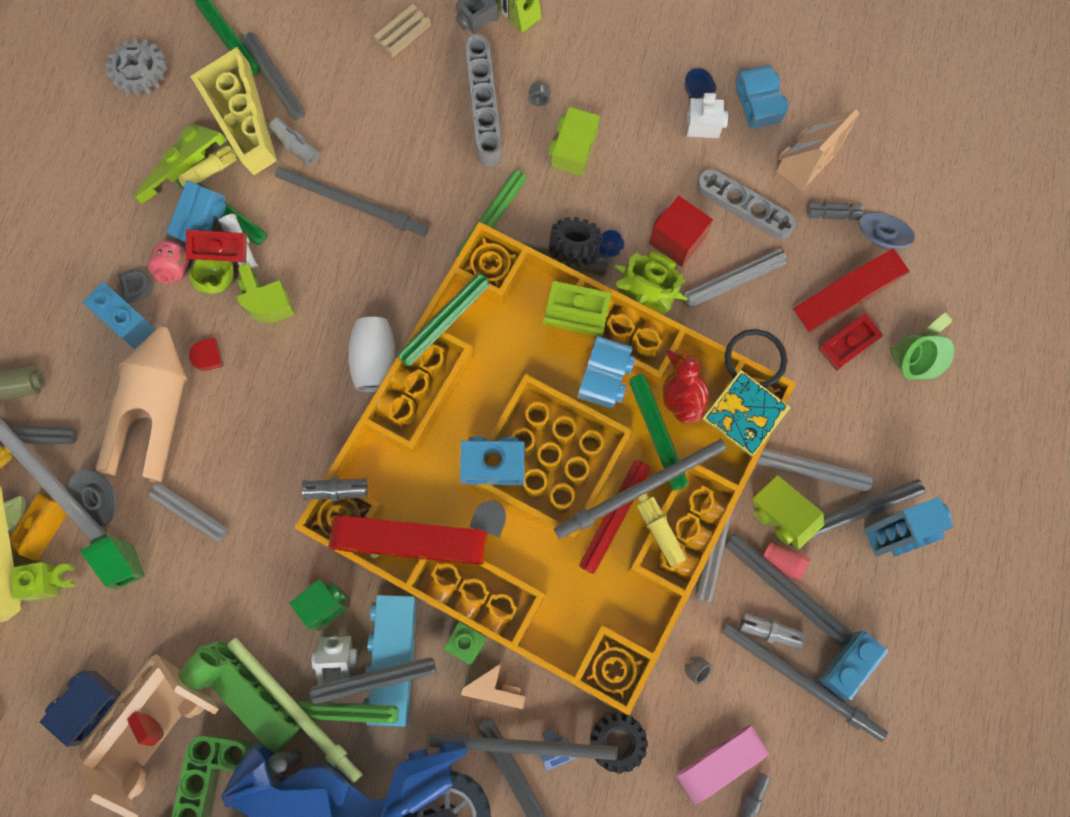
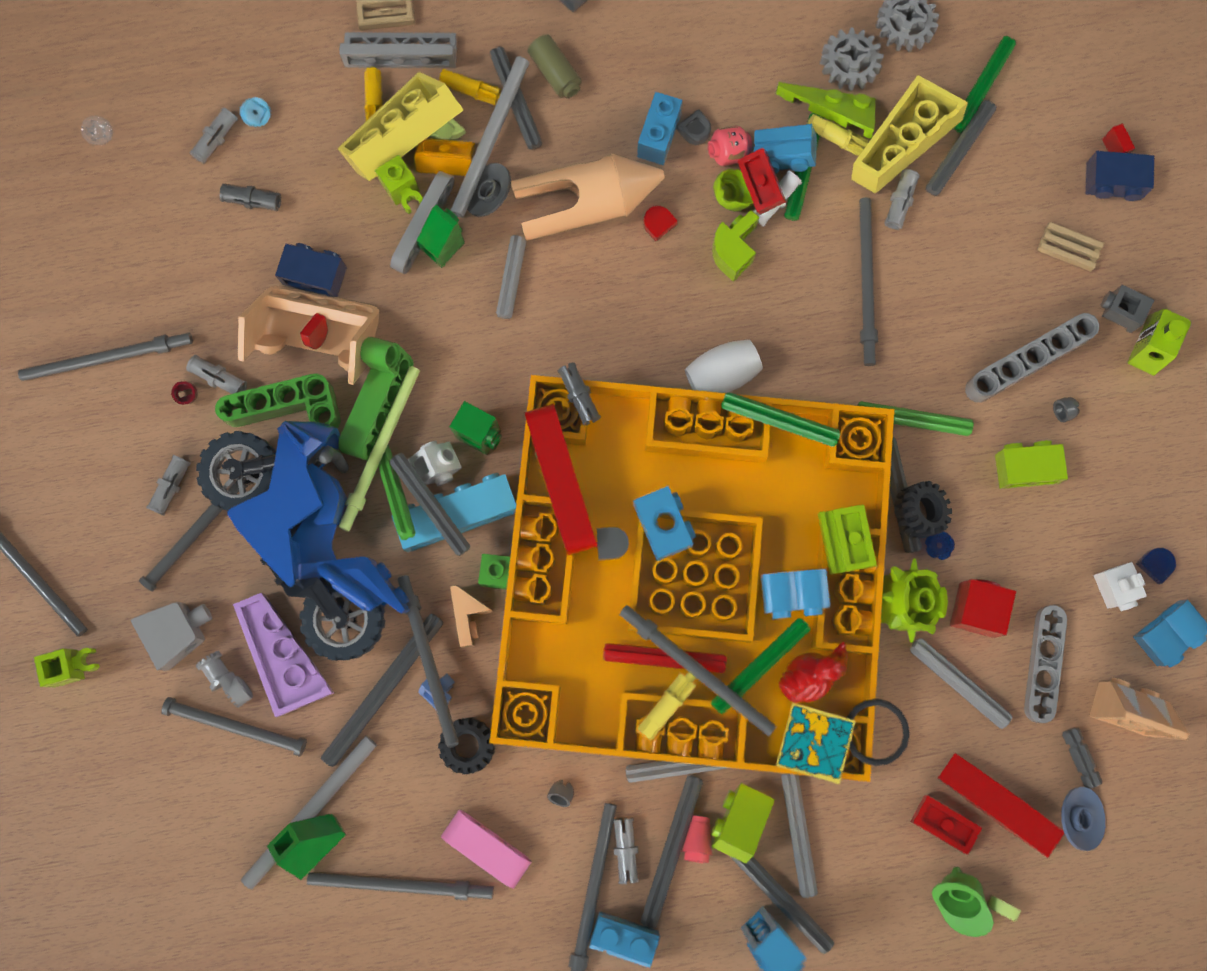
camera: 70 degrees right, 5 degrees up
(107, 598) = (408, 247): none -> light grey beam
(145, 126) = (858, 49): none -> light grey gear

